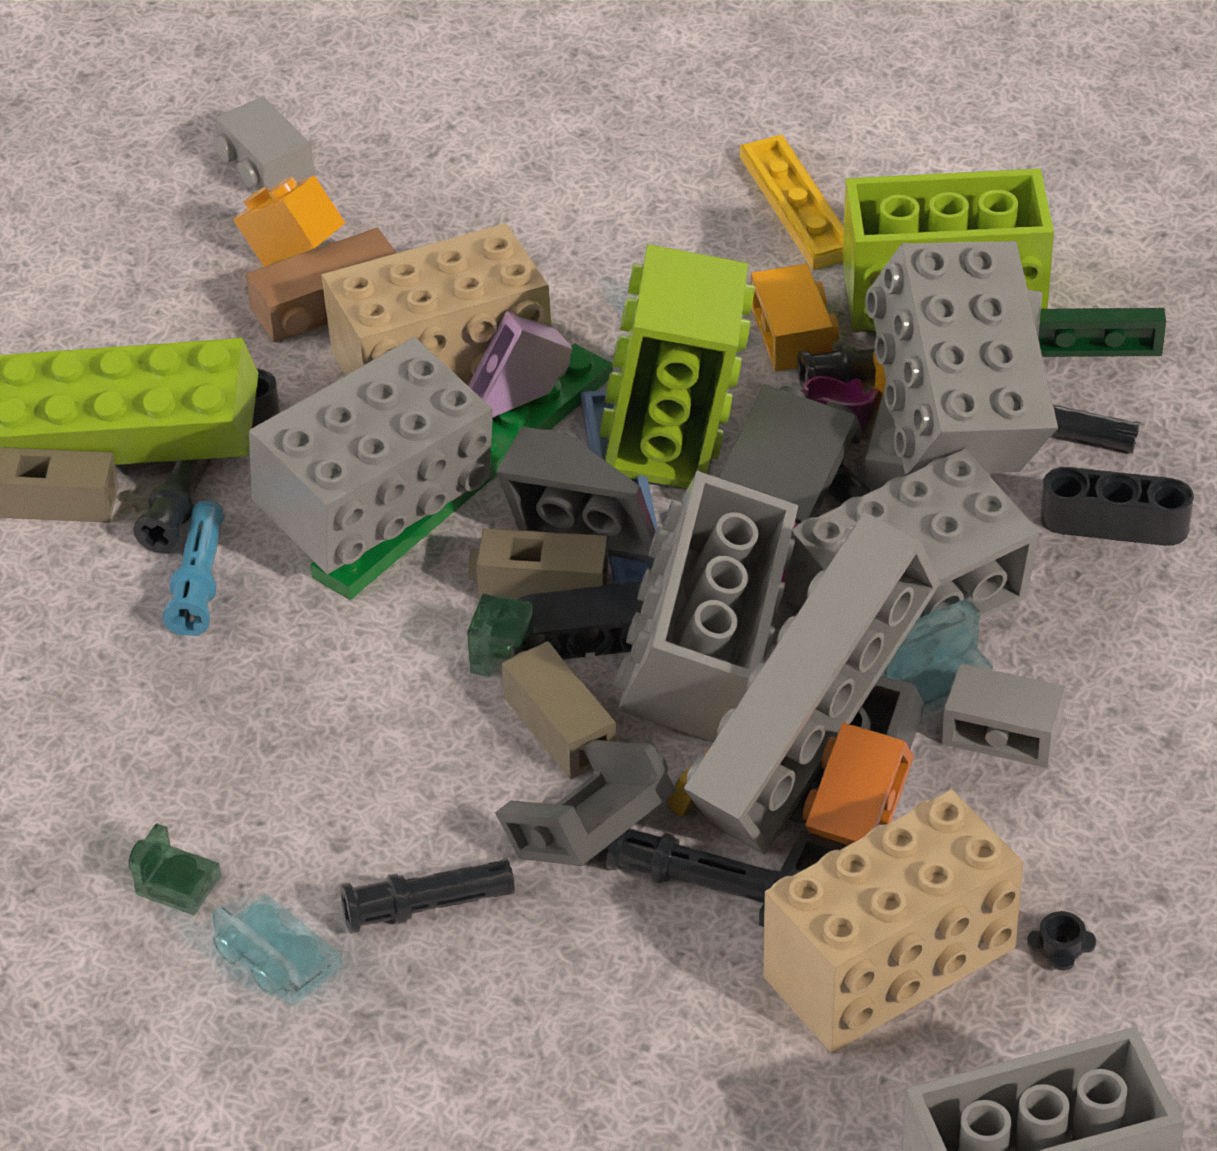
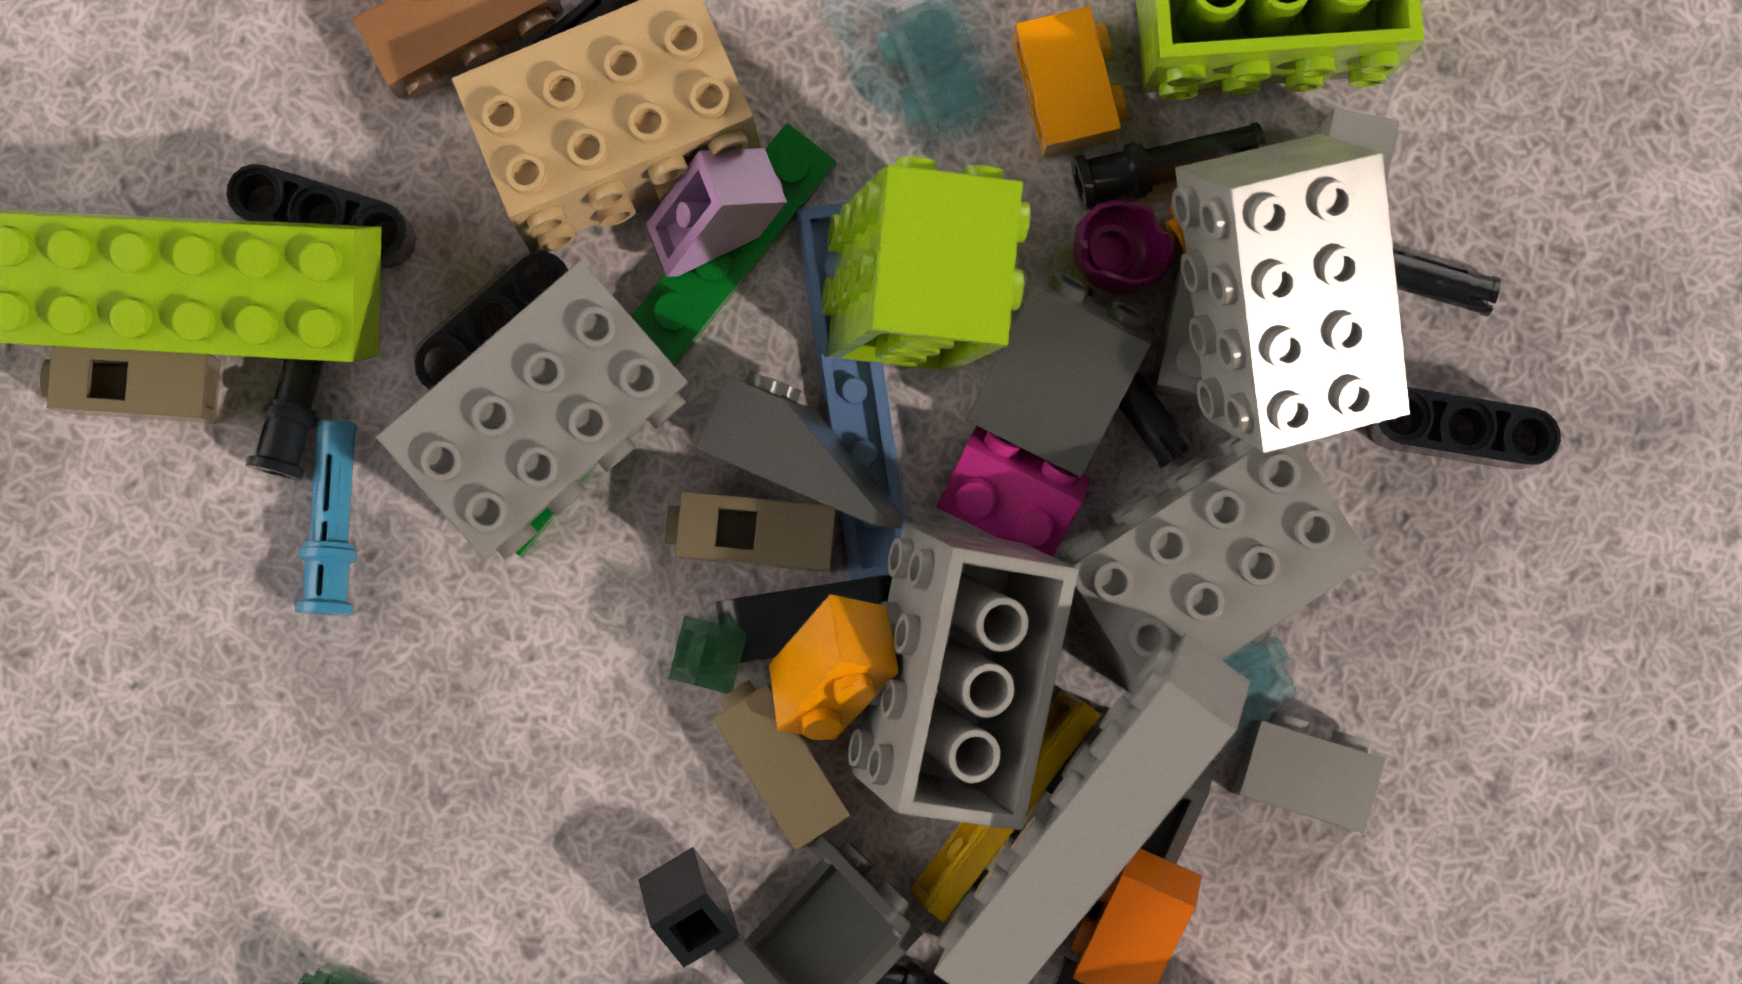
camera: 10 degrees left, 40 degrees up
(476, 786) = (688, 907): none -> black brick
(601, 613) = (832, 668): none -> light orange brick
(1102, 332) = (1440, 112): dark green plate -> none

